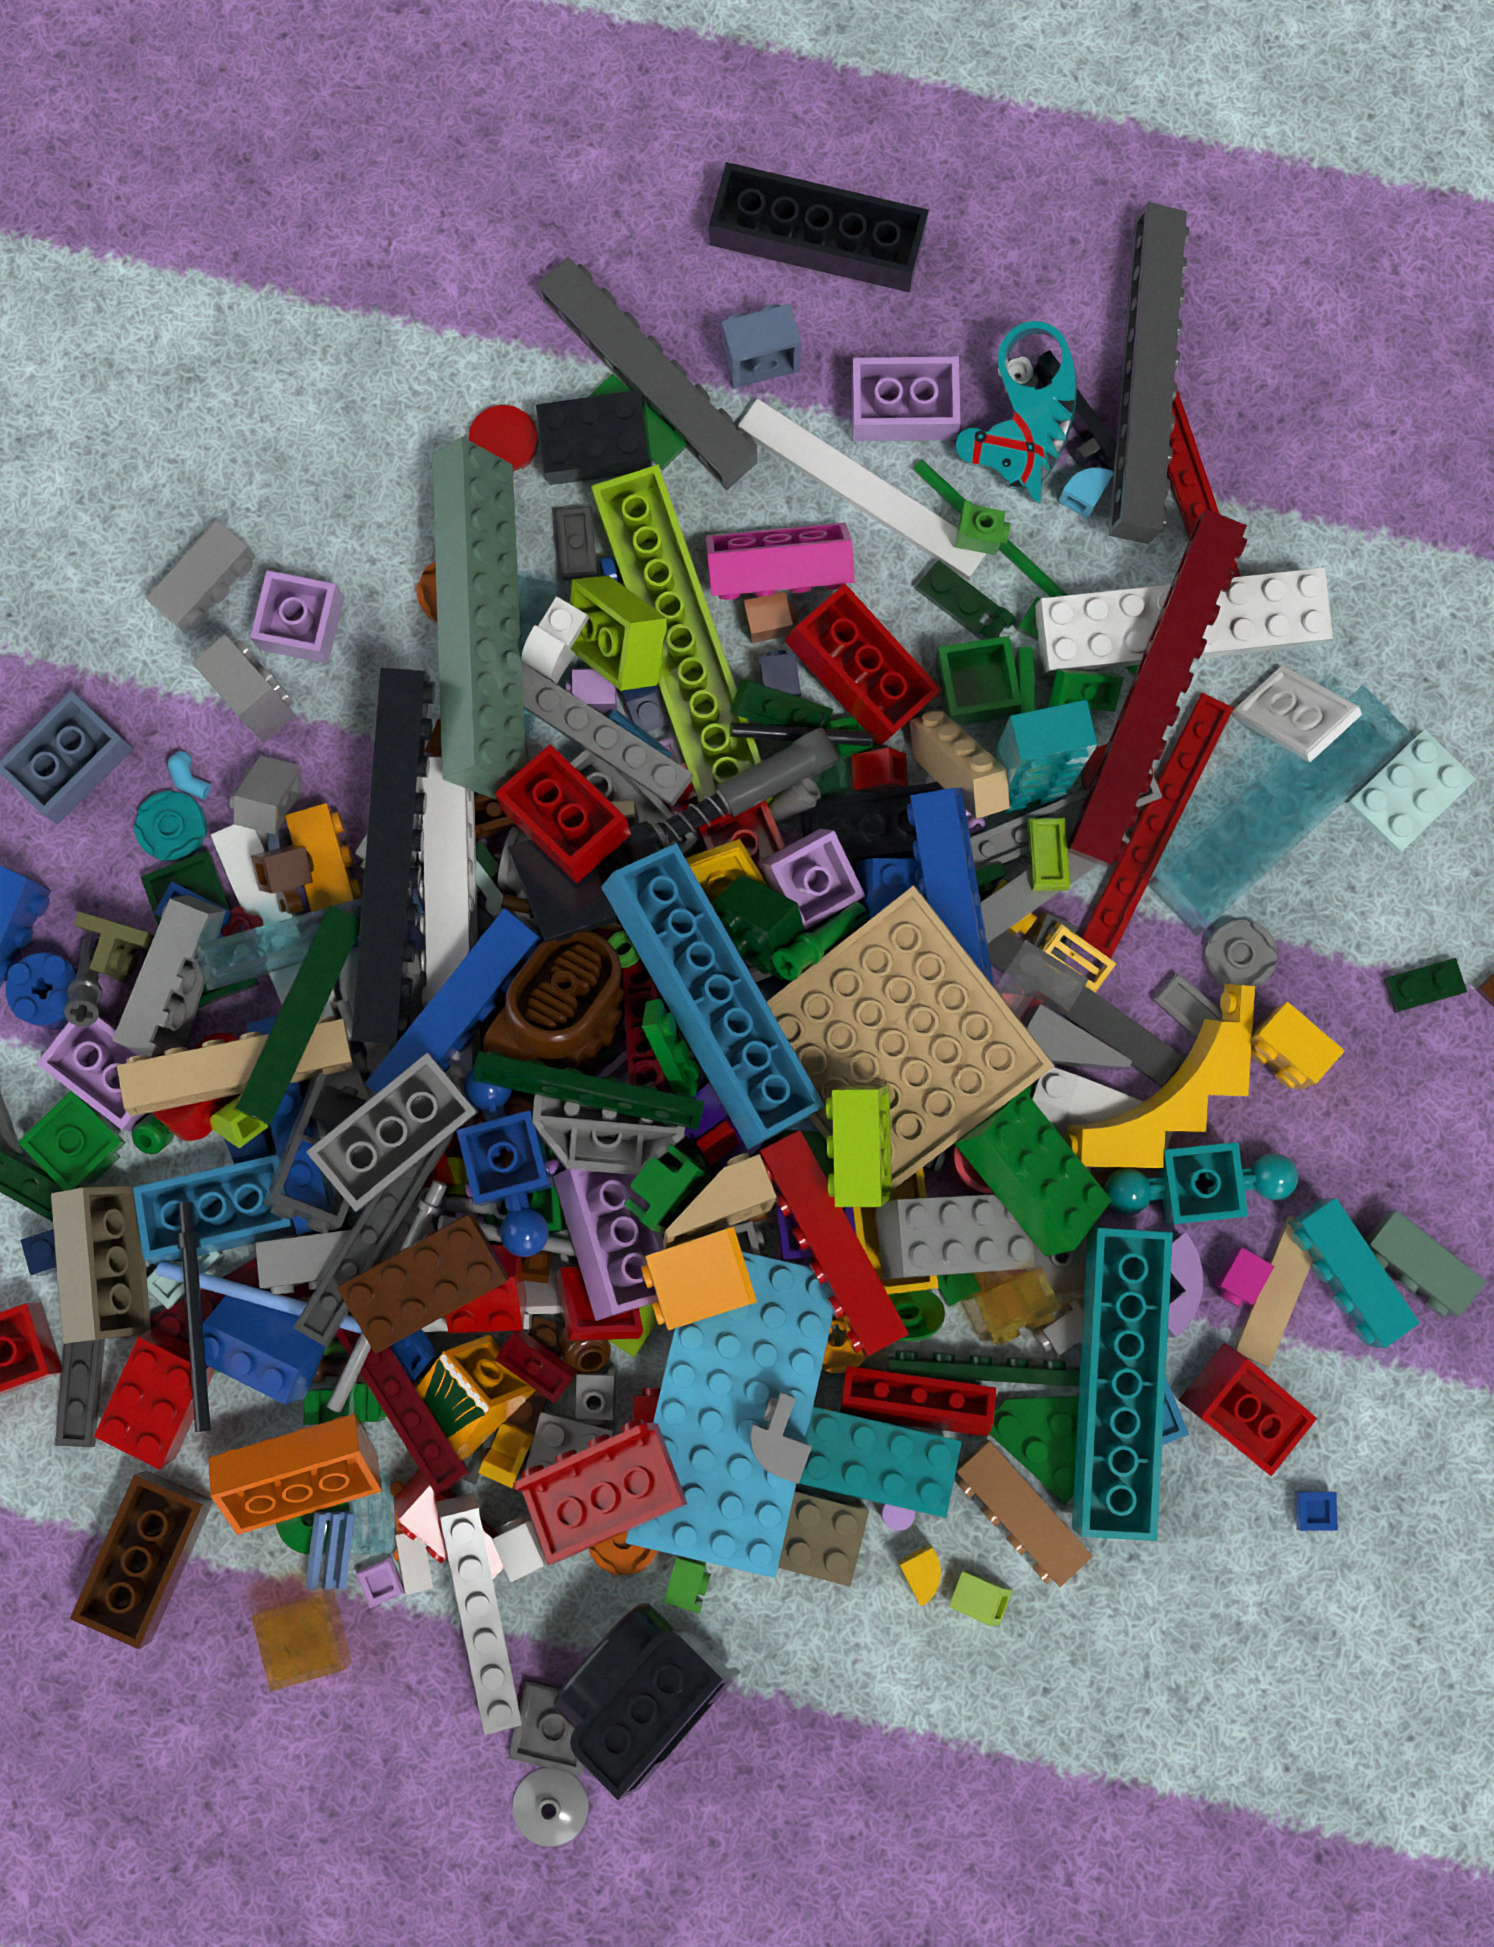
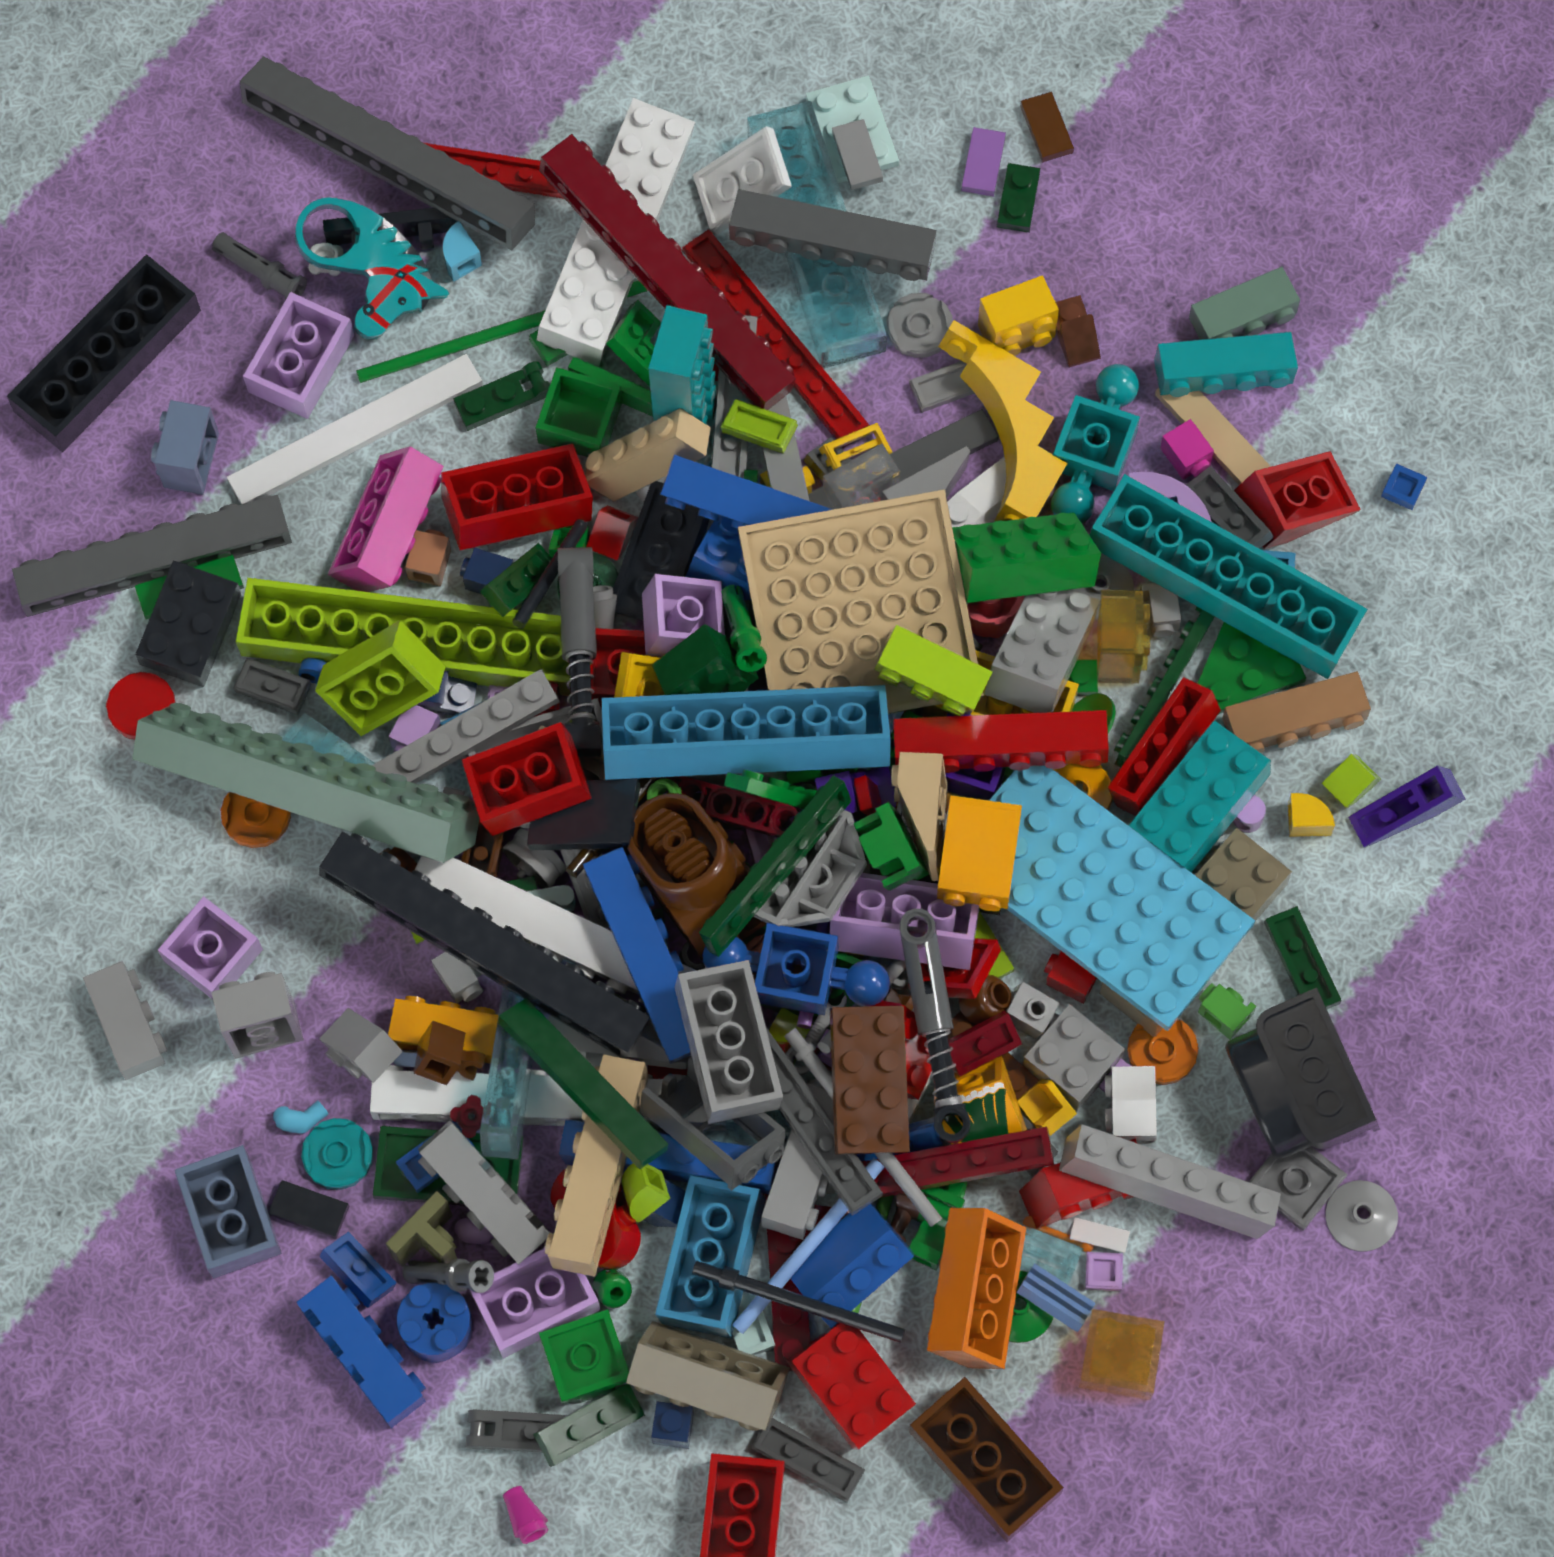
camera: 65 degrees left, 10 degrees down
(67, 897) = (358, 1269): none -> blue plate
(108, 827) = (309, 1209): none -> black tile
(511, 1317) = (934, 1021): none -> piece
(549, 644) = (360, 728): white brick -> none
(601, 1490) = (1115, 1023): red bracket -> none
(773, 1449) = (1147, 864): light grey brick -> none
(774, 1633) = (1301, 955): none -> dark green plate
(975, 537) = (447, 357): bright green brick -> none
(976, 333) = (271, 274): none -> dark grey pin
(980, 1667) = (1407, 806): none -> dark purple slope
(1198, 1348) = (1228, 509): none -> dark grey plate
(1278, 826) = (832, 235): none -> dark grey brick
(1312, 1108) = (1076, 332): none -> copper slope
(1384, 809) = (857, 154): none -> light grey tile
(1445, 933) = (983, 161): none -> medium lavender tile

